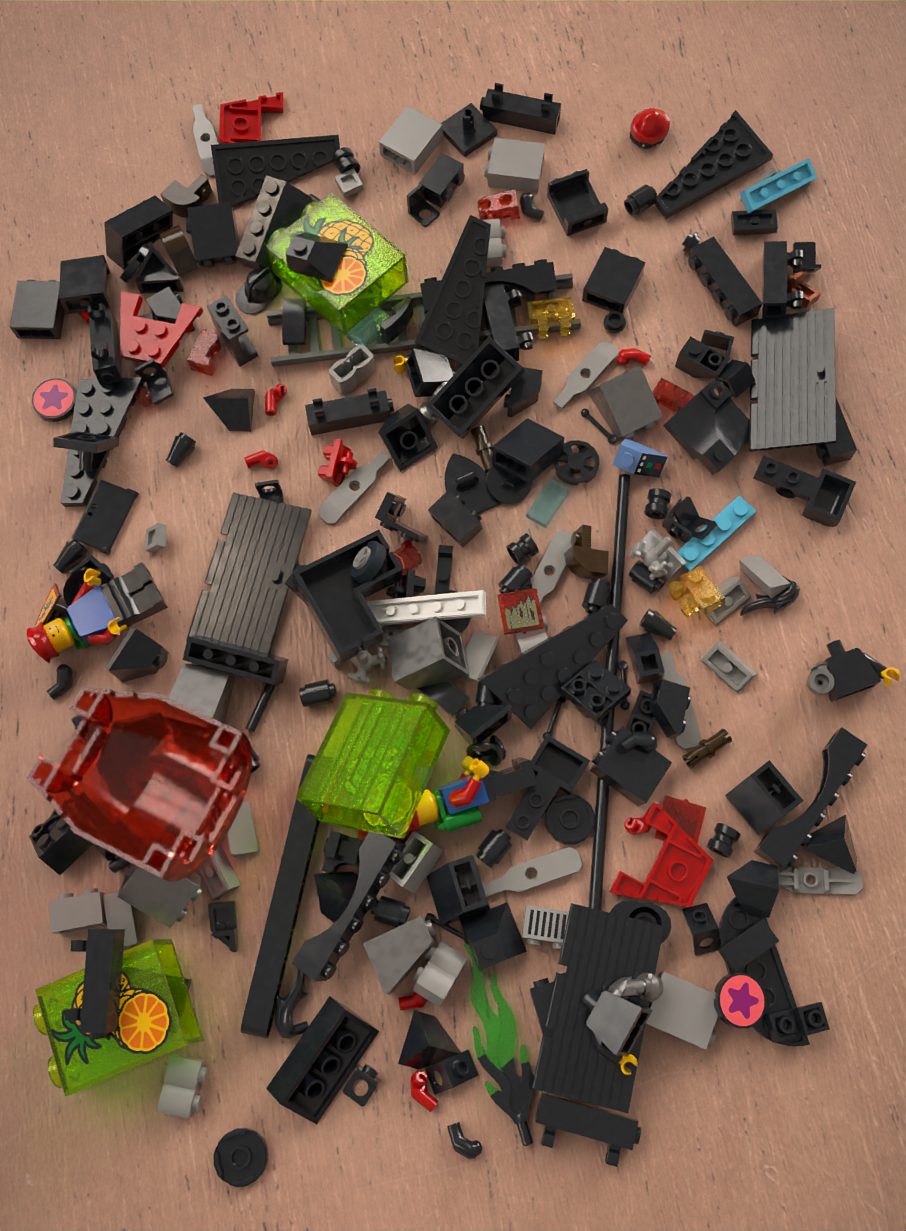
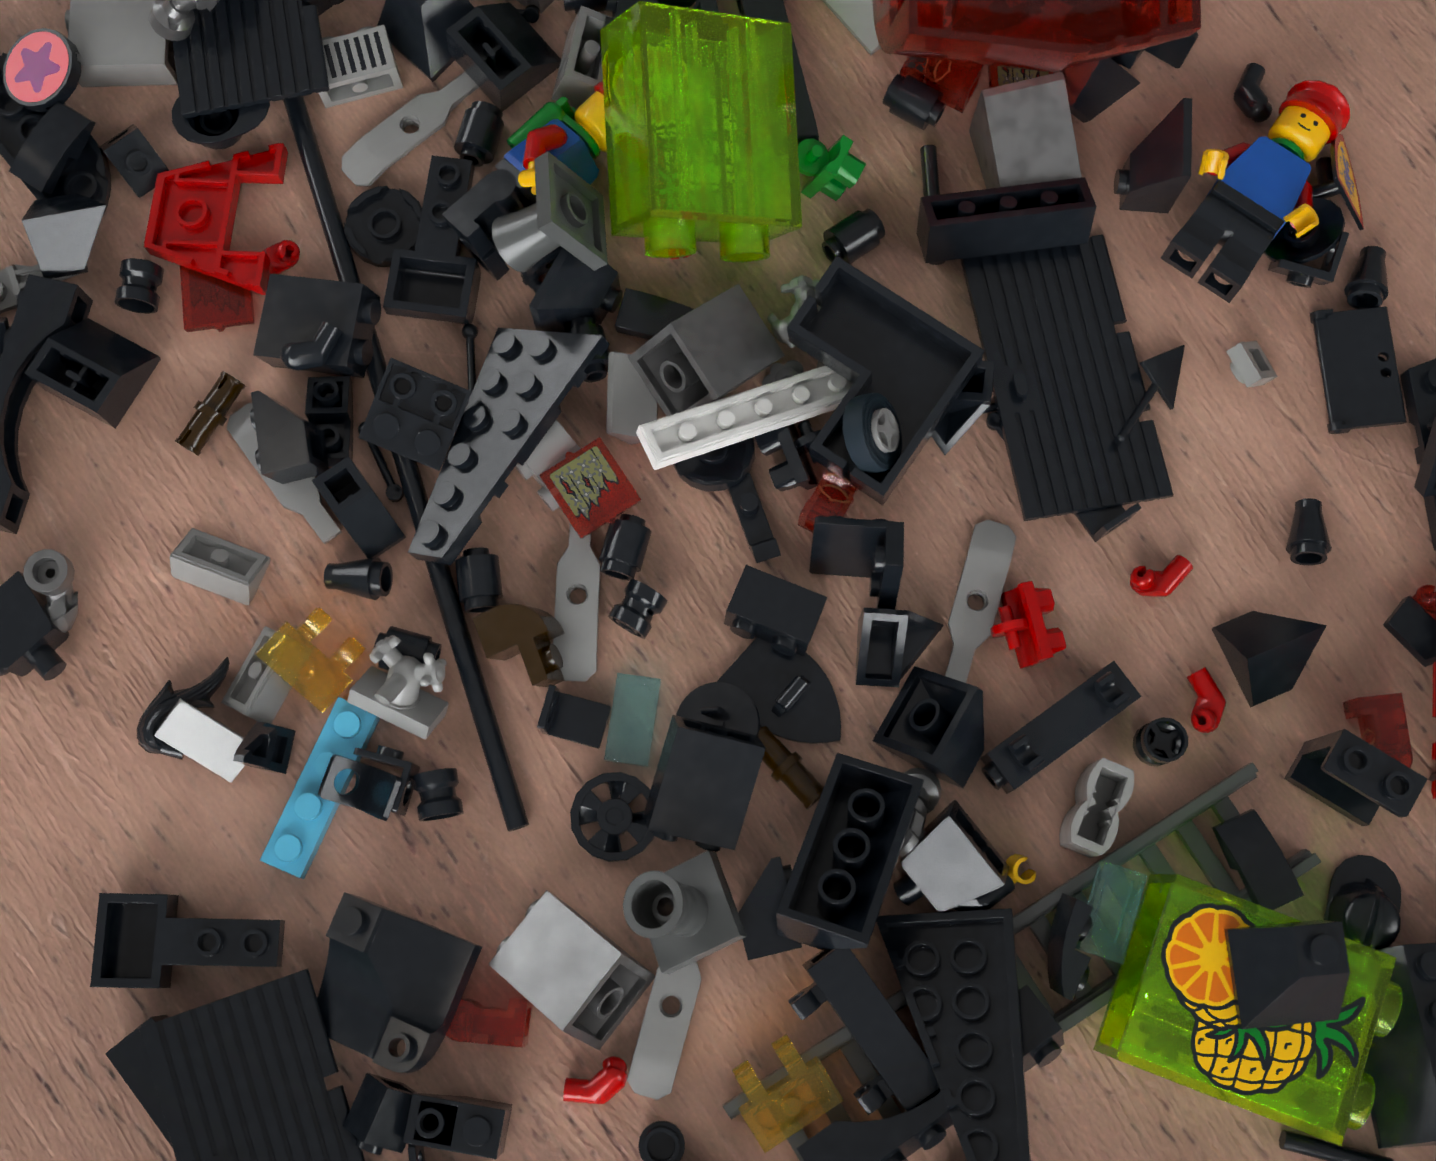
camera: 150 degrees right, 5 degrees up
(203, 554) = (1164, 375): none -> black piece
(306, 387) = (1168, 737): none -> black wheel
(309, 730) = (831, 168): none -> green hips
(408, 484) = (890, 644): none -> black slope
(474, 742) = (564, 215): none -> dark grey plant
(562, 401) = (684, 911): none -> dark grey plant
(576, 512) = (573, 718): none -> black bracket
(611, 437) = (571, 895): black hinge -> none
(639, 459) = (503, 862): slope -> none
(735, 554) = (266, 748): none -> black slope

